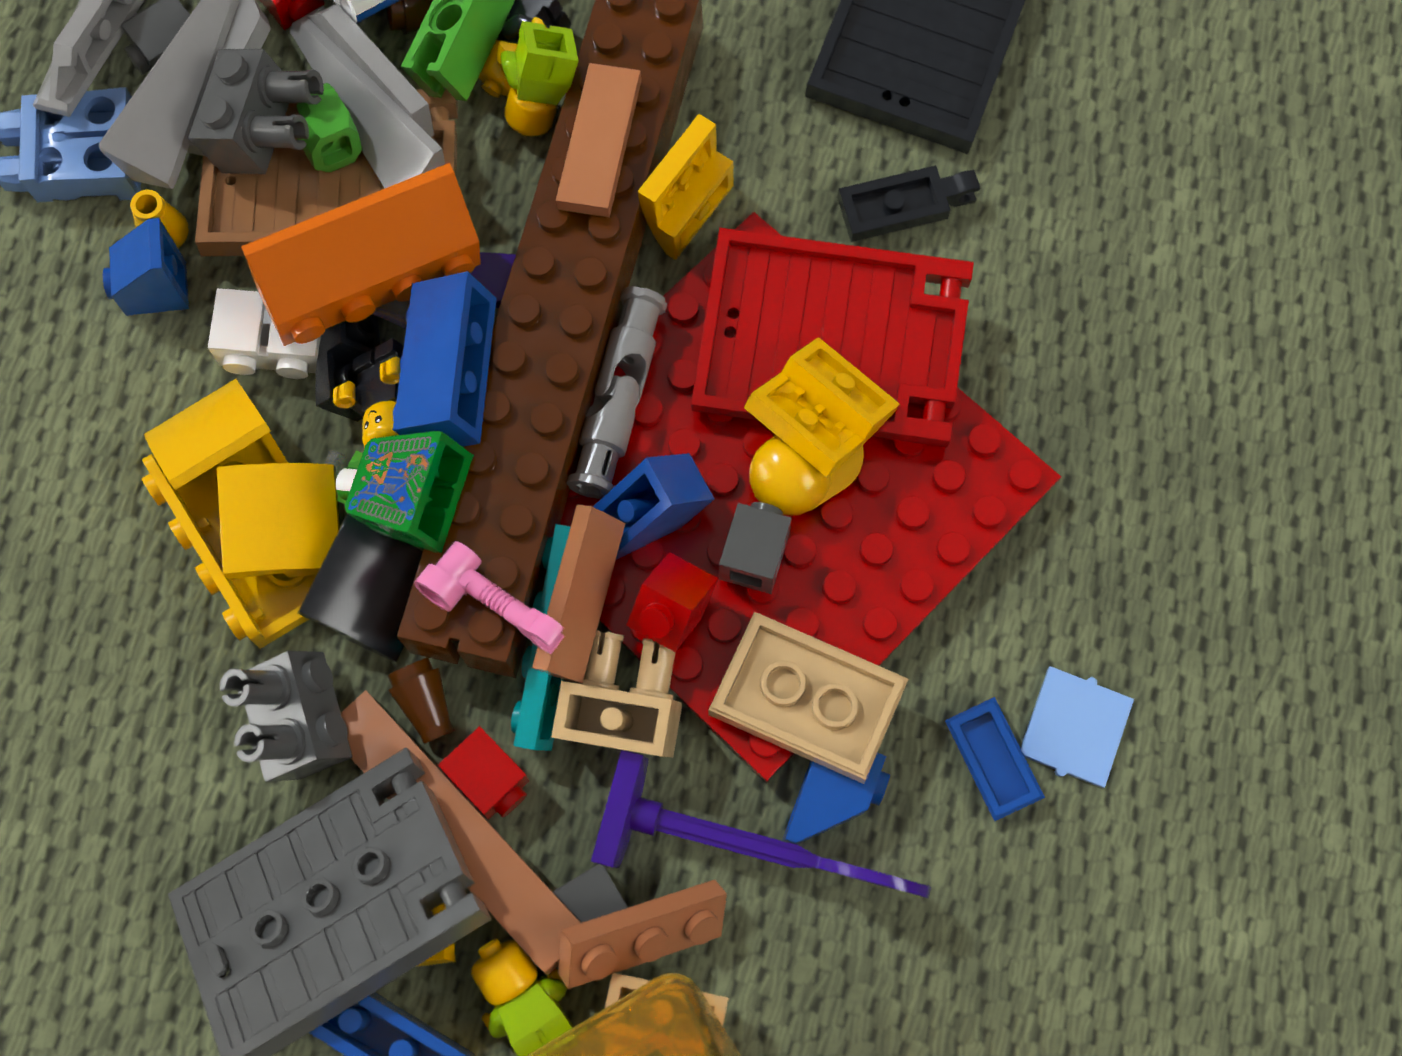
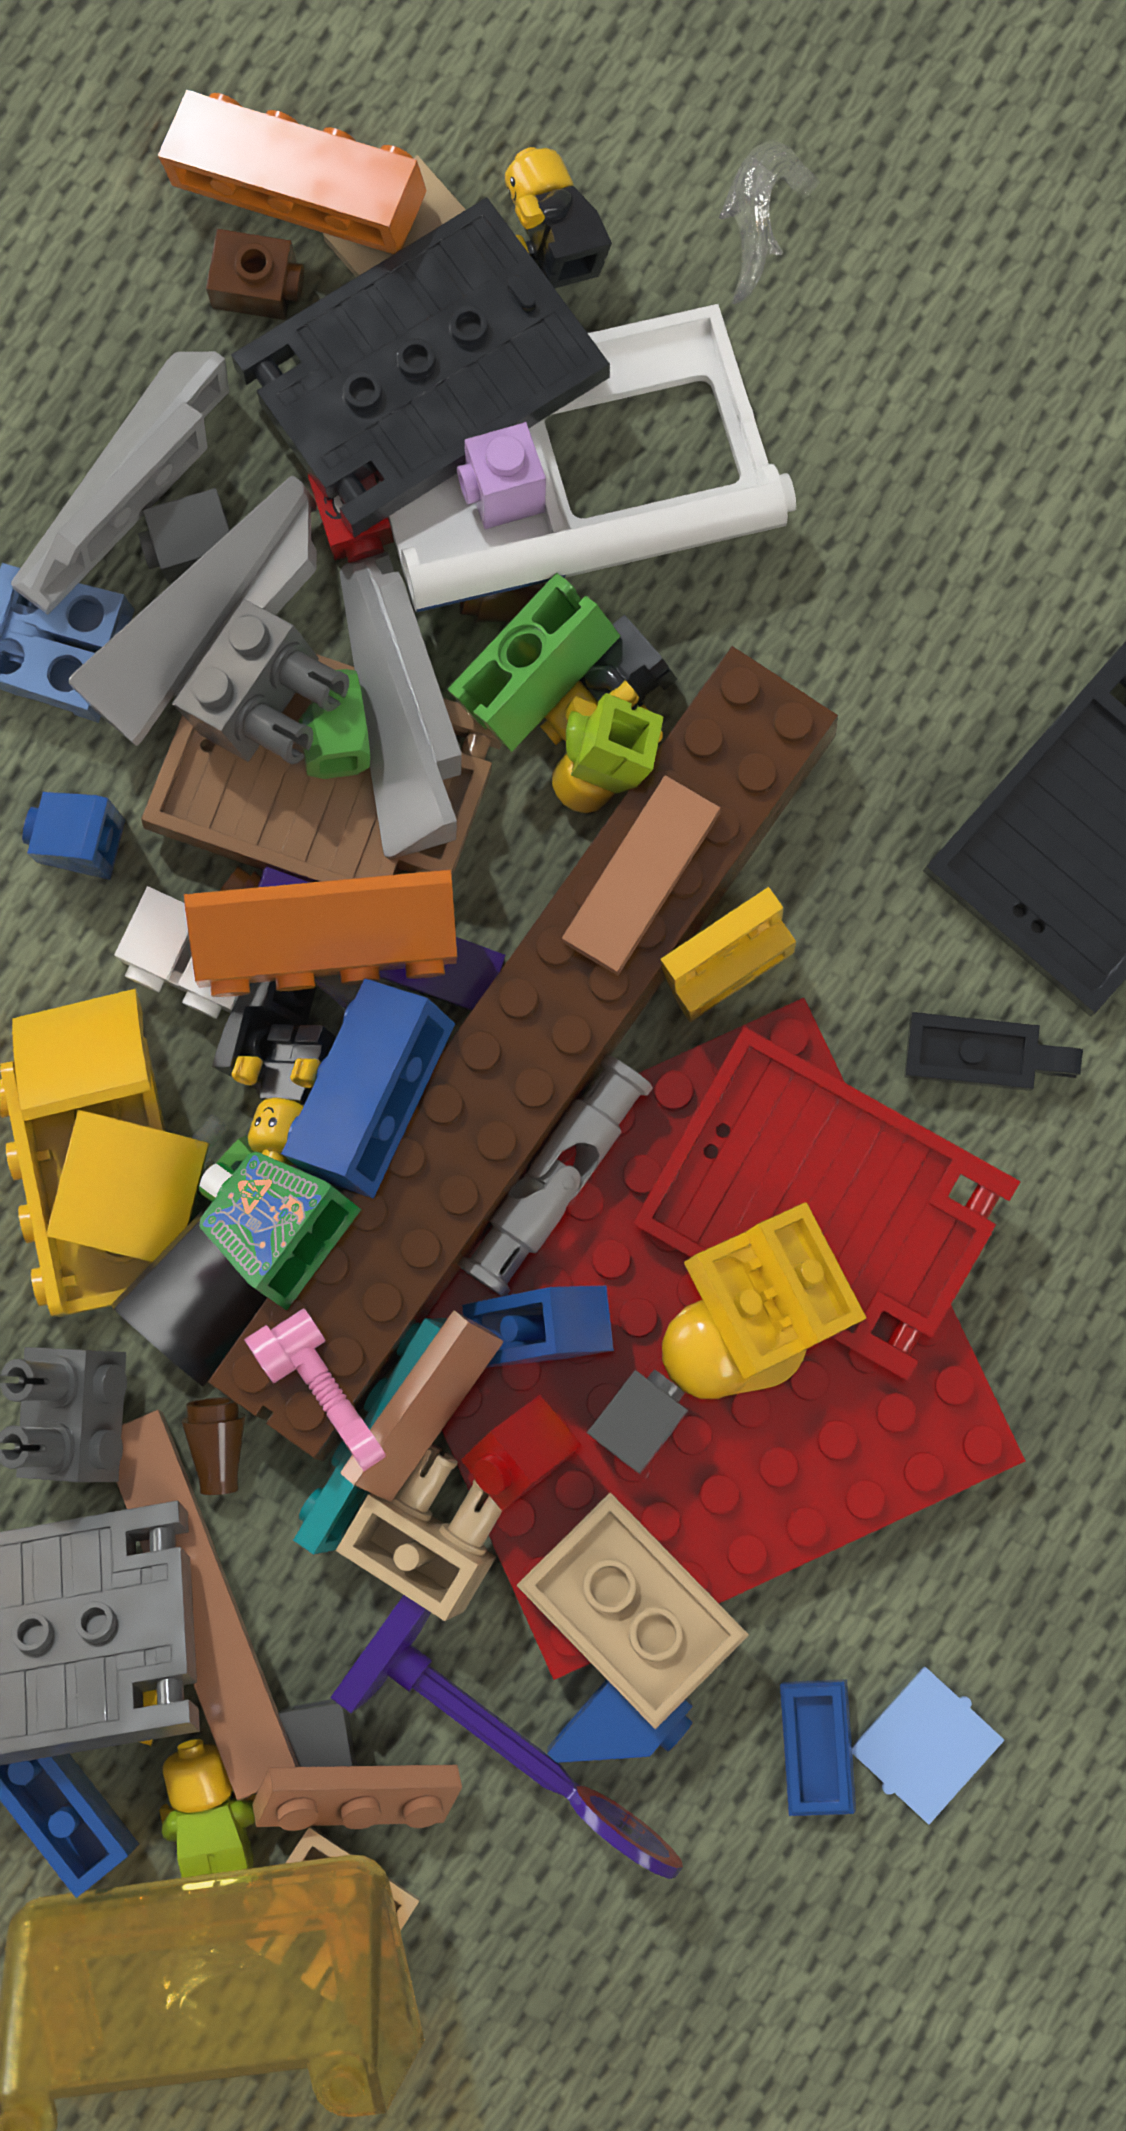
camera: 30 degrees right, 10 degrees up
(149, 205) = (119, 782): yellow cone -> none
(485, 775) = (254, 1556): red brick -> none

